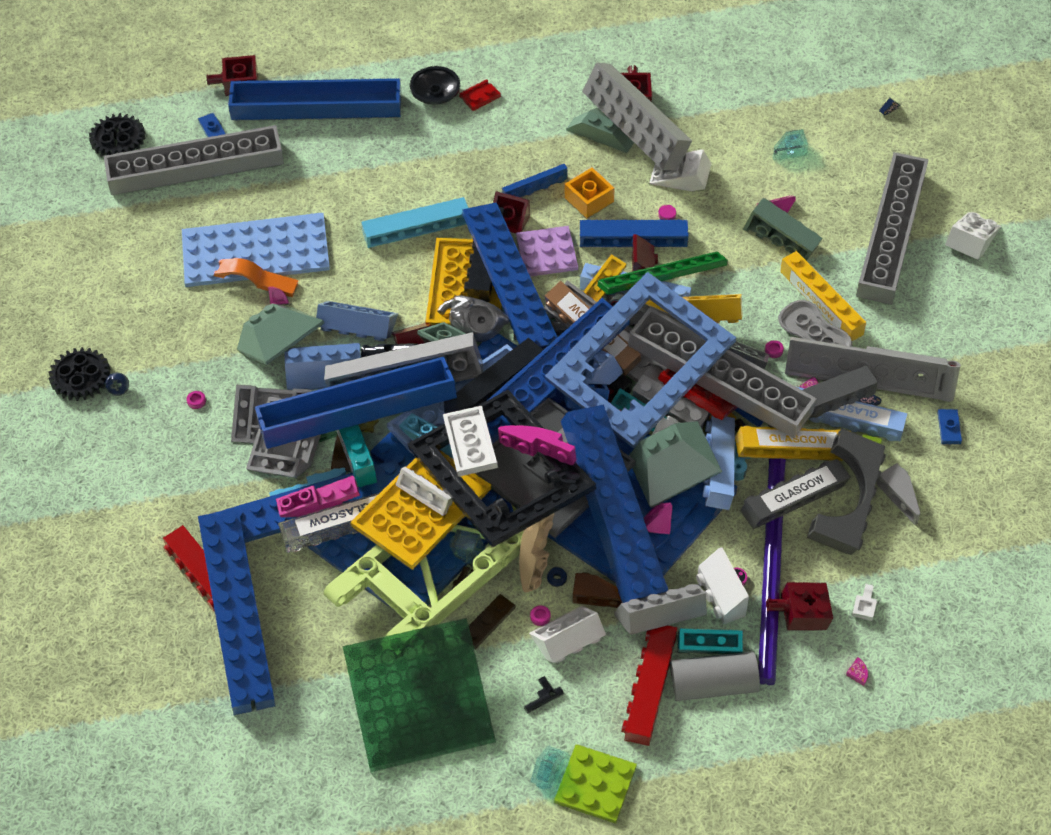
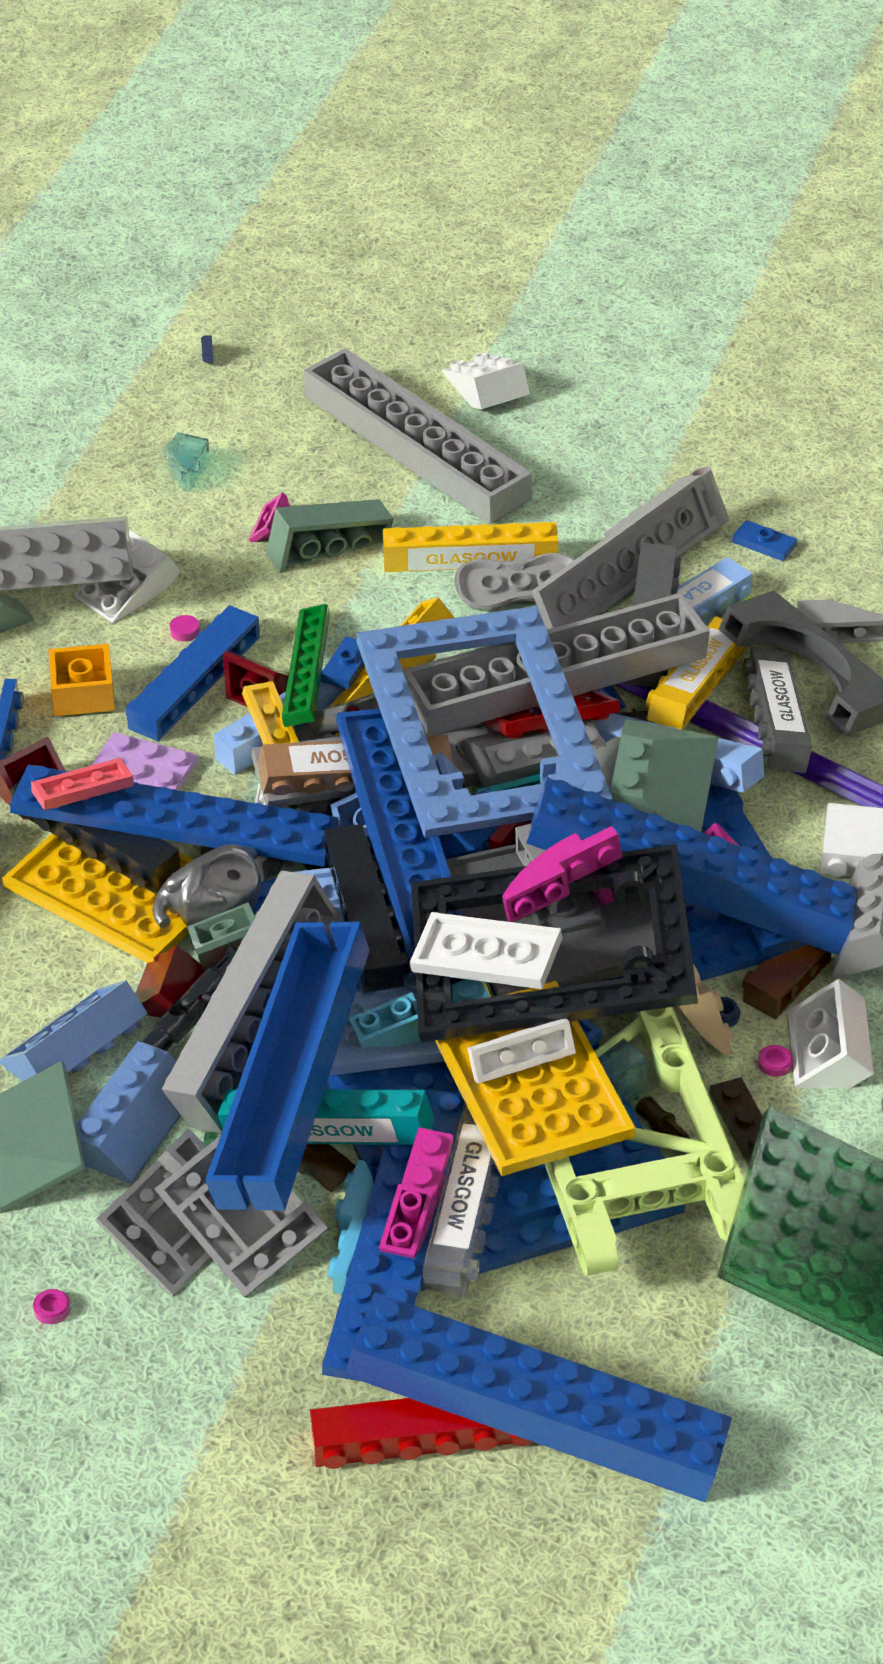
camera: 60 degrees left, 10 degrees down
(489, 228) = (82, 784): none -> coral plate
(681, 286) = (344, 665): none -> blue plate

